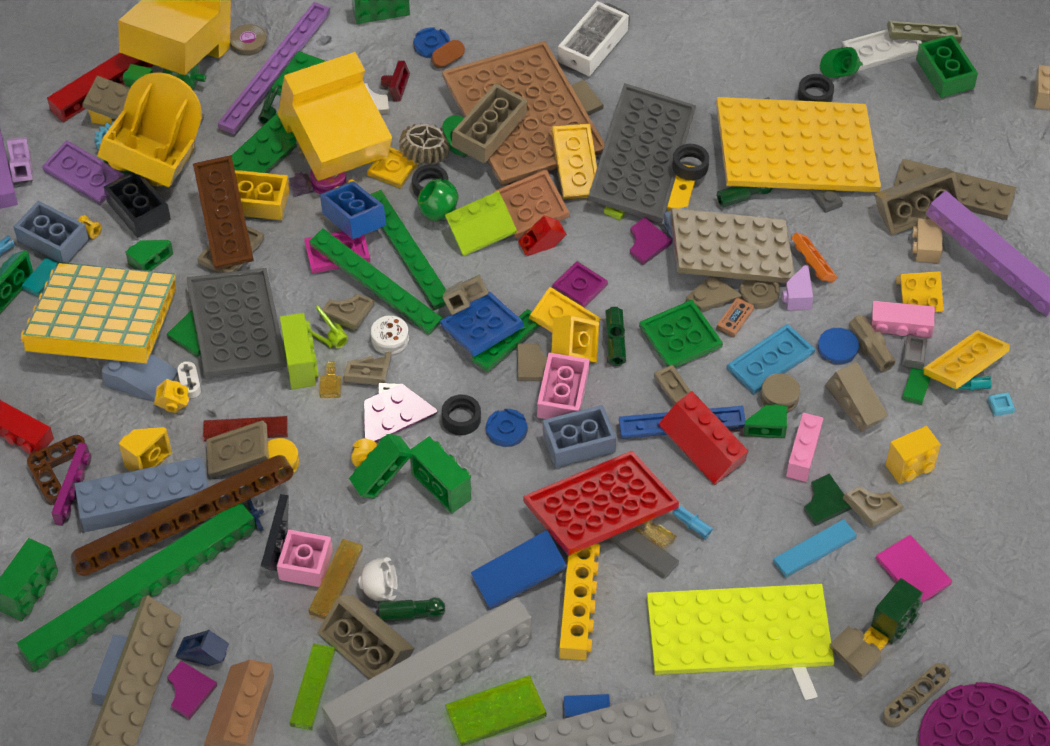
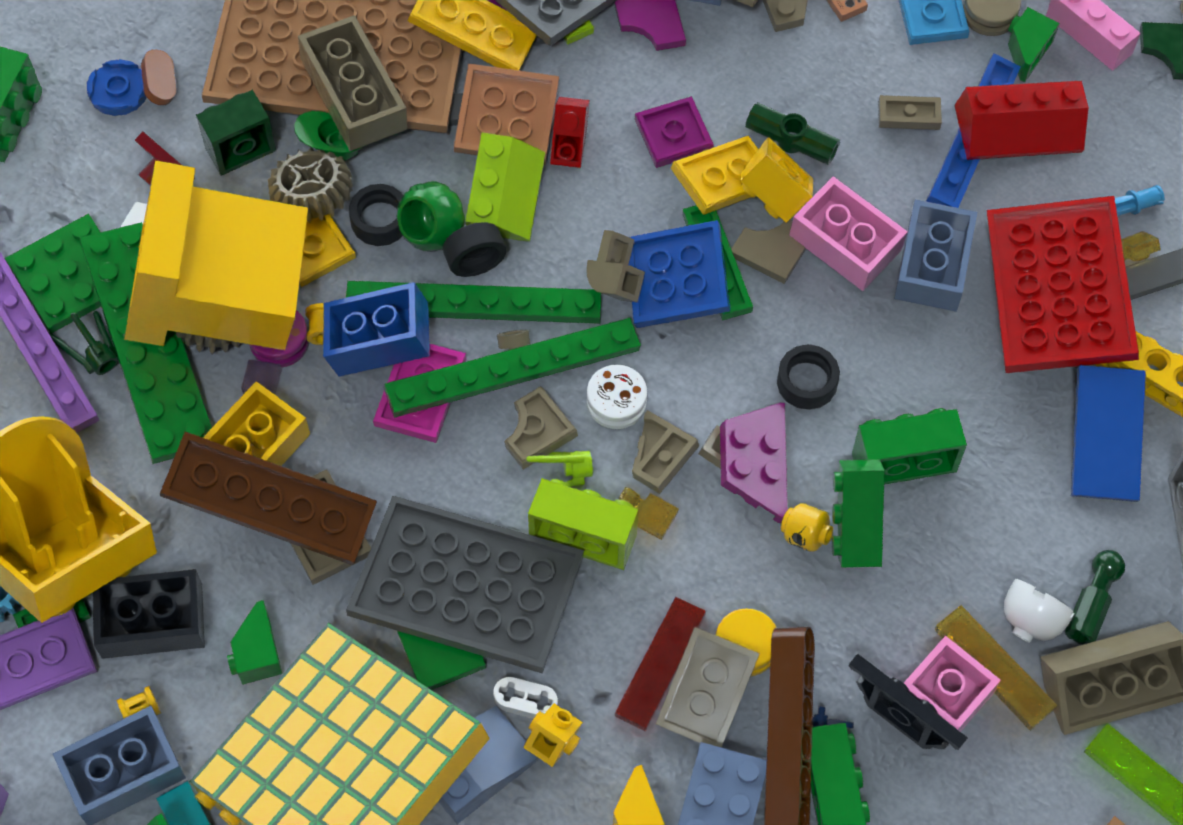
camera: 60 degrees left, 10 degrees up
(393, 274) = (513, 339): none -> dark tan tile
(431, 97) = (236, 132): none -> dark green brick
(432, 228) = (474, 249): none -> black tyre
(506, 427) = (857, 335): blue tile -> none
(680, 334) = (833, 62): green plate -> none

